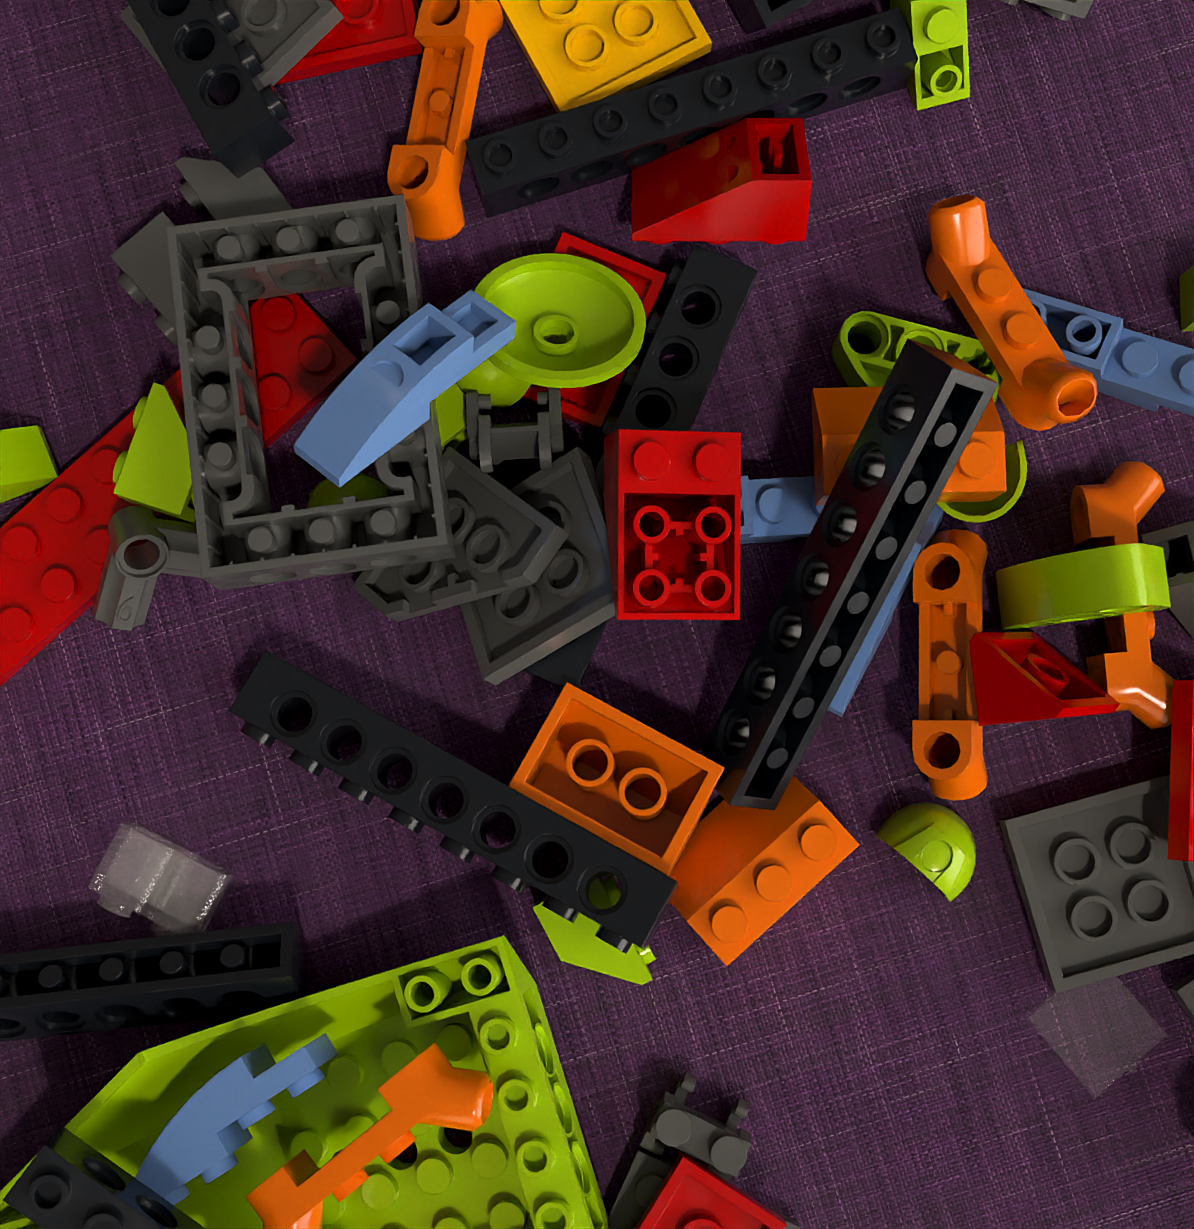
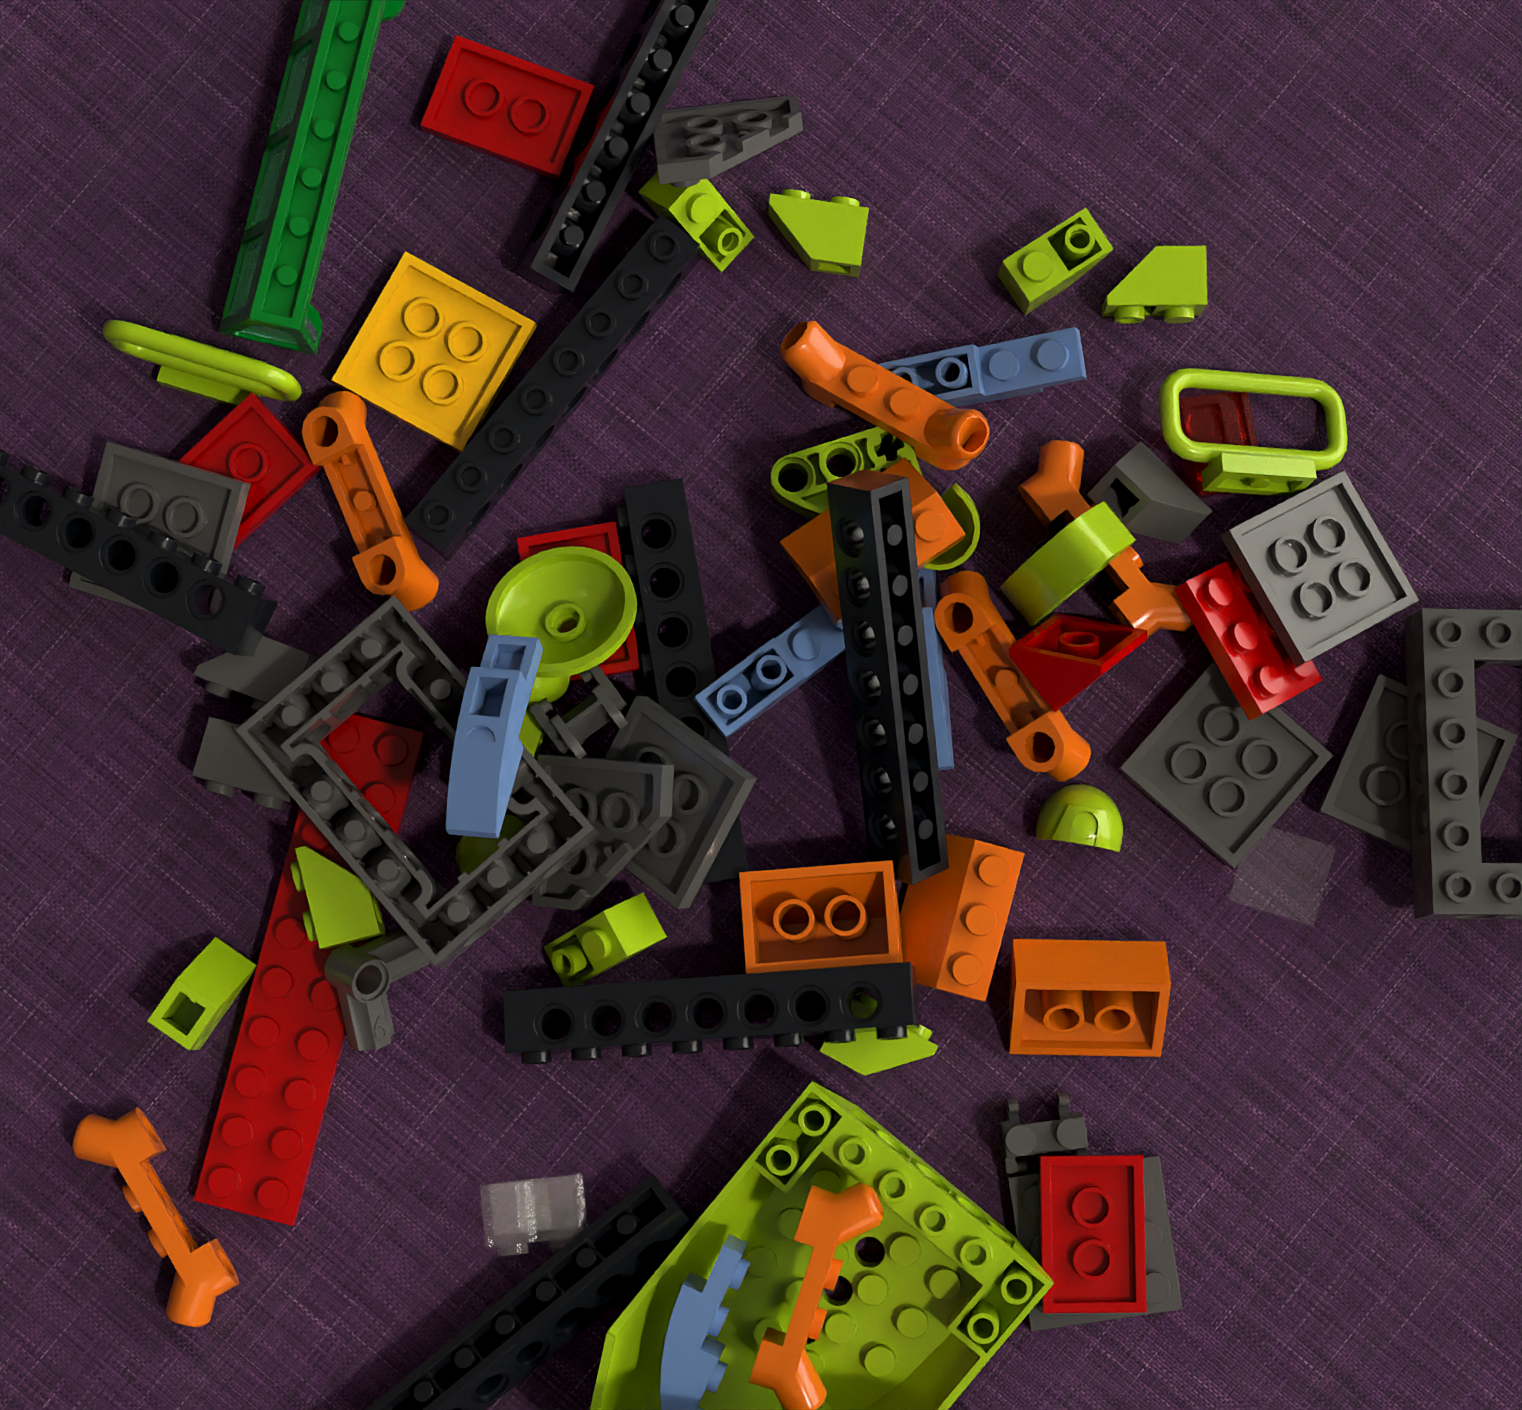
camera: 35 degrees left, 0 degrees up
(398, 665) = (605, 941): none -> lime slope
(673, 523) = (745, 712): red slope -> none
(727, 187) = (618, 430): red slope -> none
(831, 1025) = (1088, 997): none -> orange slope
(1040, 126) = (822, 232): none -> lime slope

